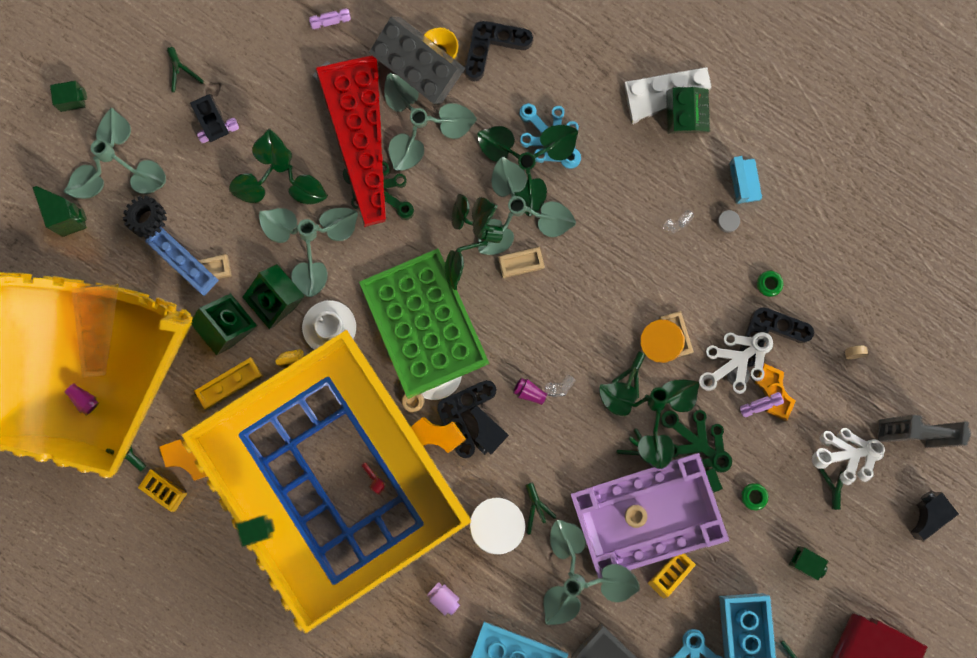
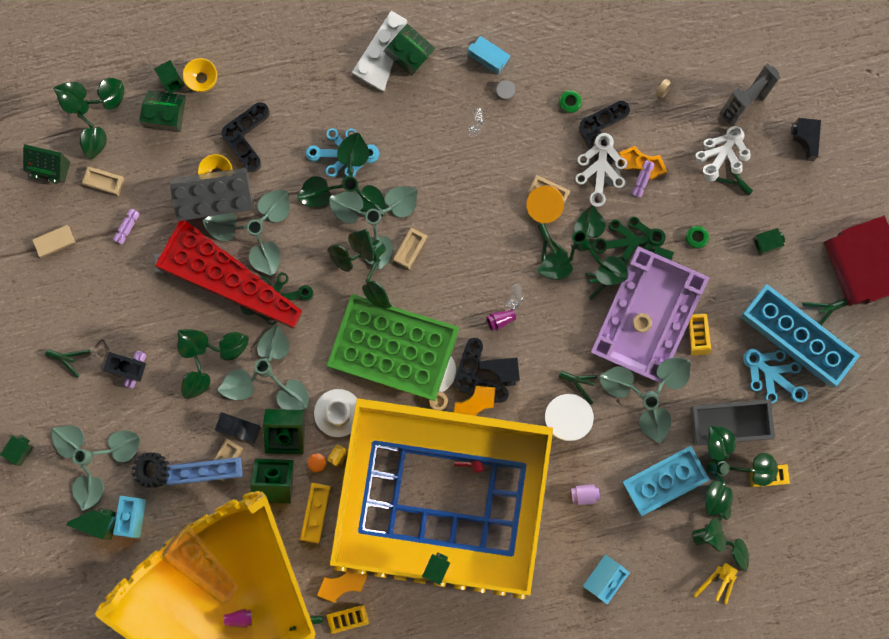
camera: 45 degrees left, 0 degrees up
(90, 235) = (129, 517): none -> medium azure panel
(241, 254) = (237, 427): none -> black arch
(271, 347) = (317, 462): none -> orange tile

